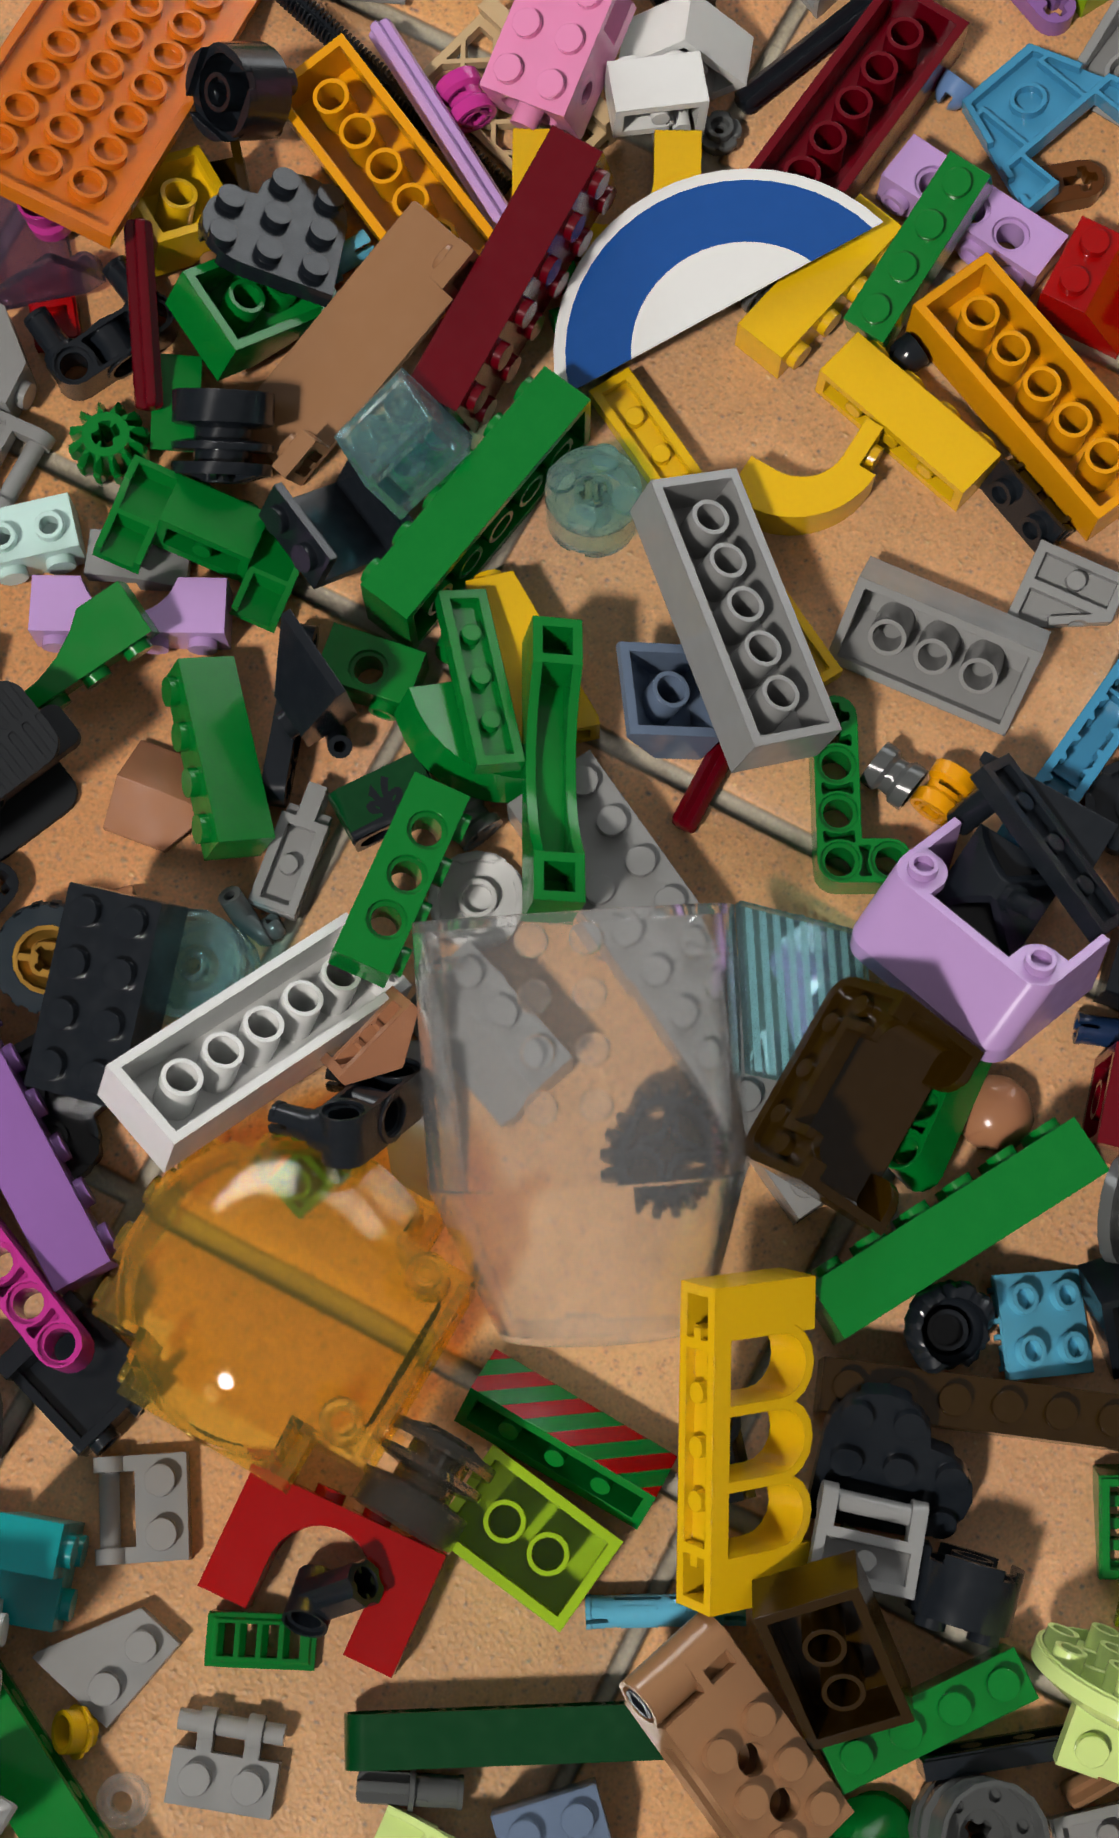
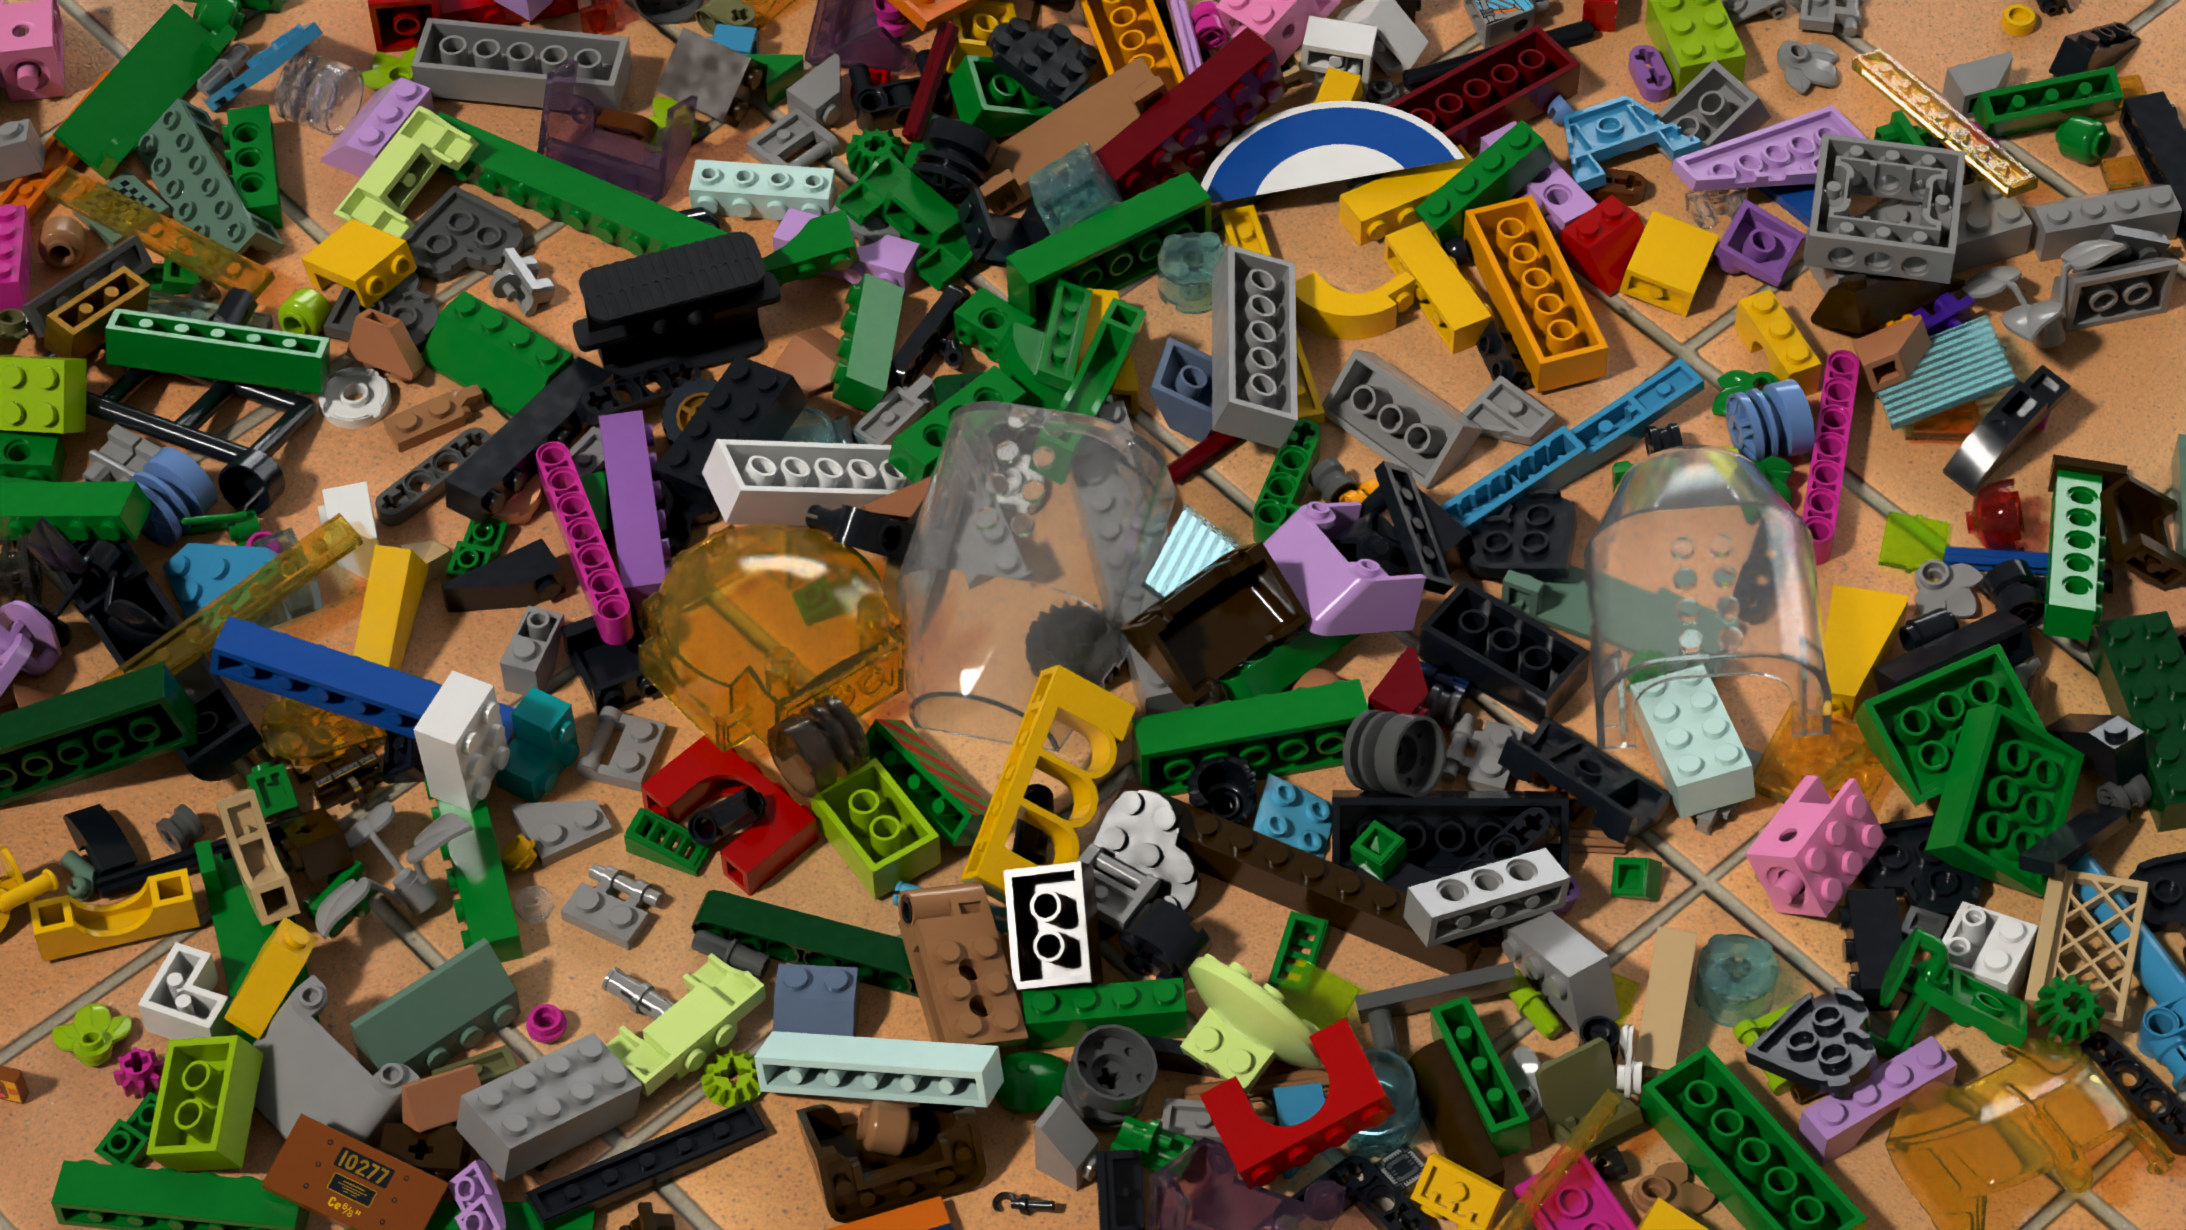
camera: 20 degrees right, 25 degrees down
(307, 687) = (945, 306): black slope -> none

